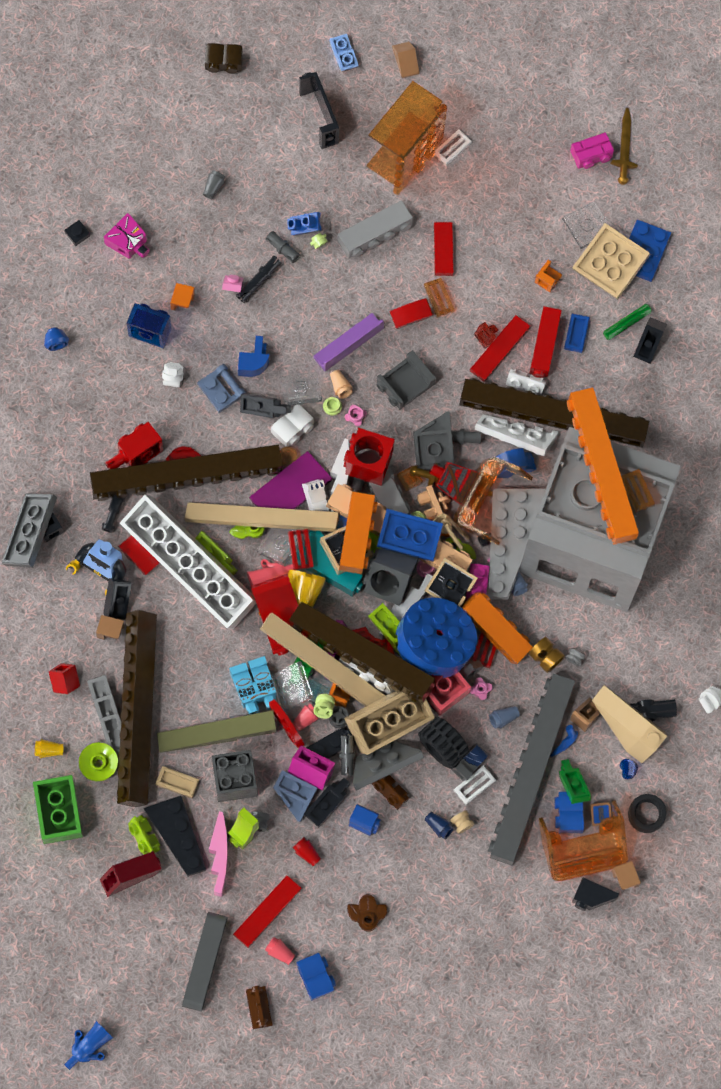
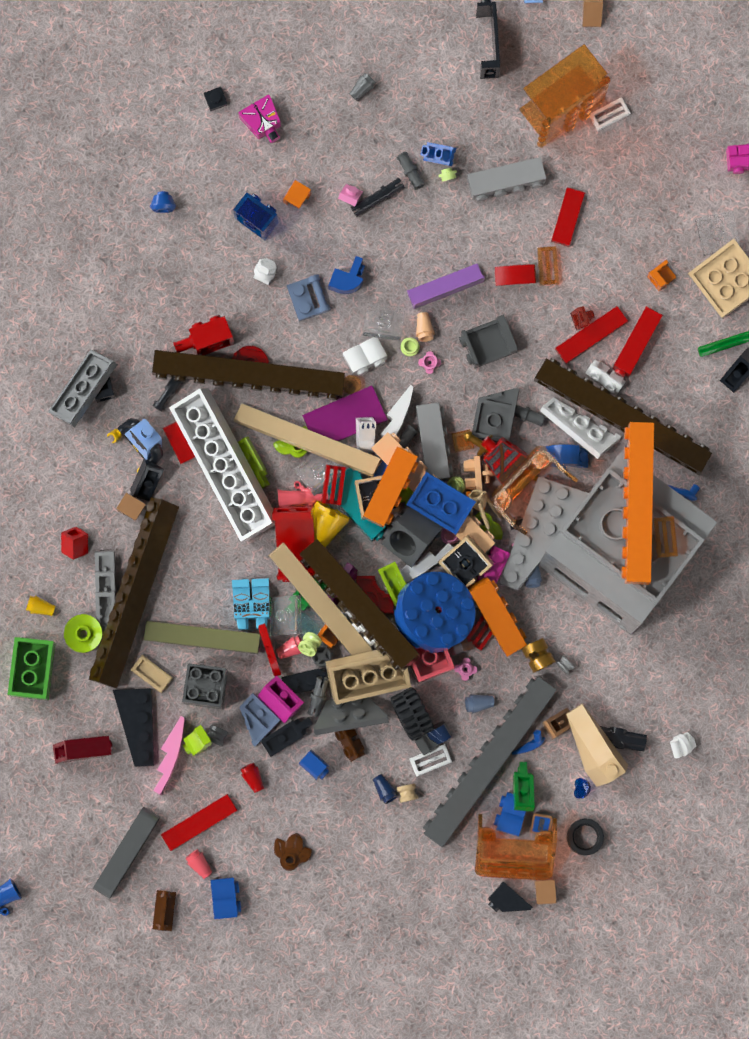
camera: 20 degrees right, 10 degrees up
(139, 828) = (102, 708): lime hinge -> none
(263, 406) = (342, 329): black hinge -> none
(372, 472) = (426, 430): red brick -> none
(576, 333) = (671, 341): blue tile -> none

